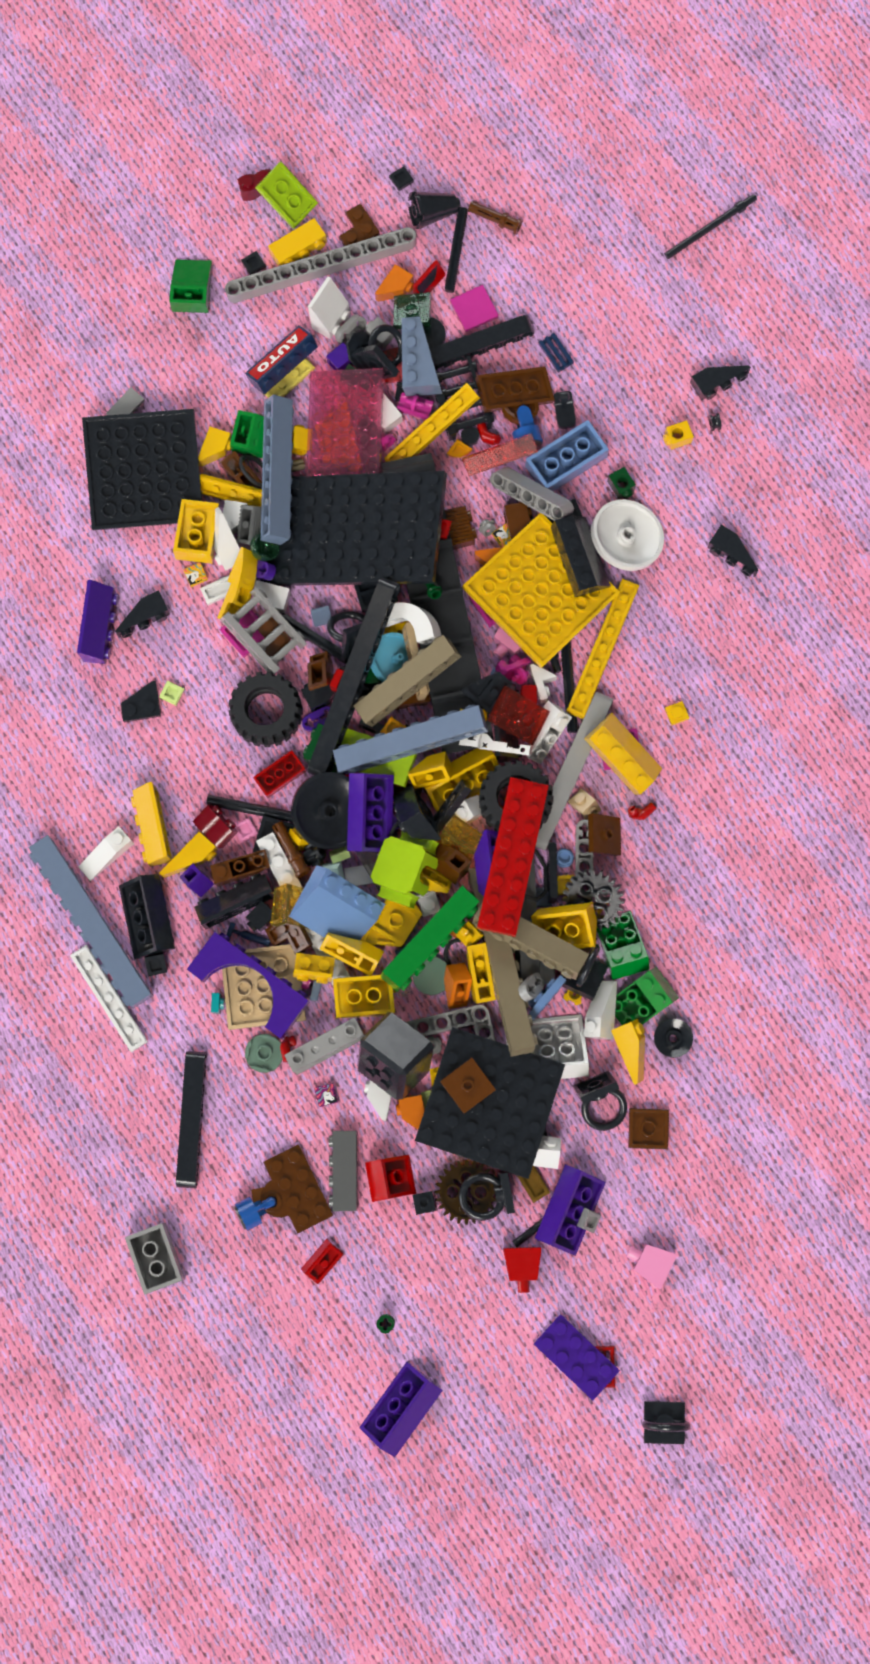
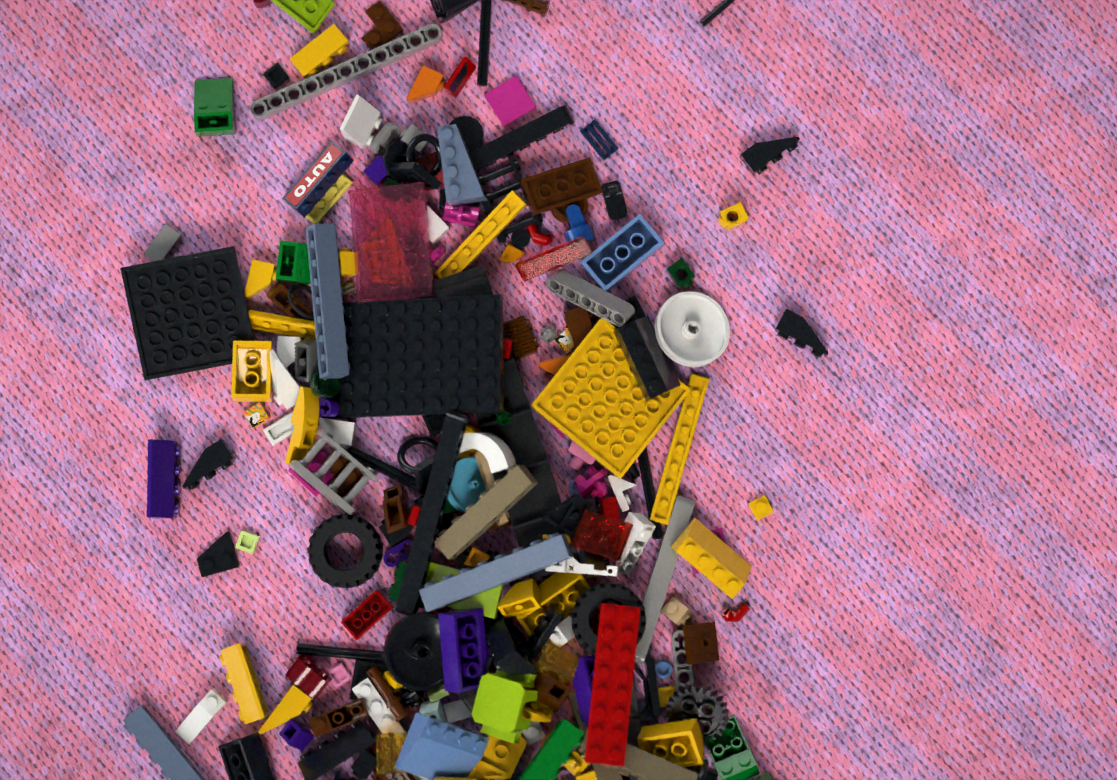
camera: 10 degrees left, 5 degrees up
(321, 616) = (390, 446): sand blue slope -> none
(412, 306) = (446, 110): plate -> none
(714, 422) = (769, 198): black bush -> none

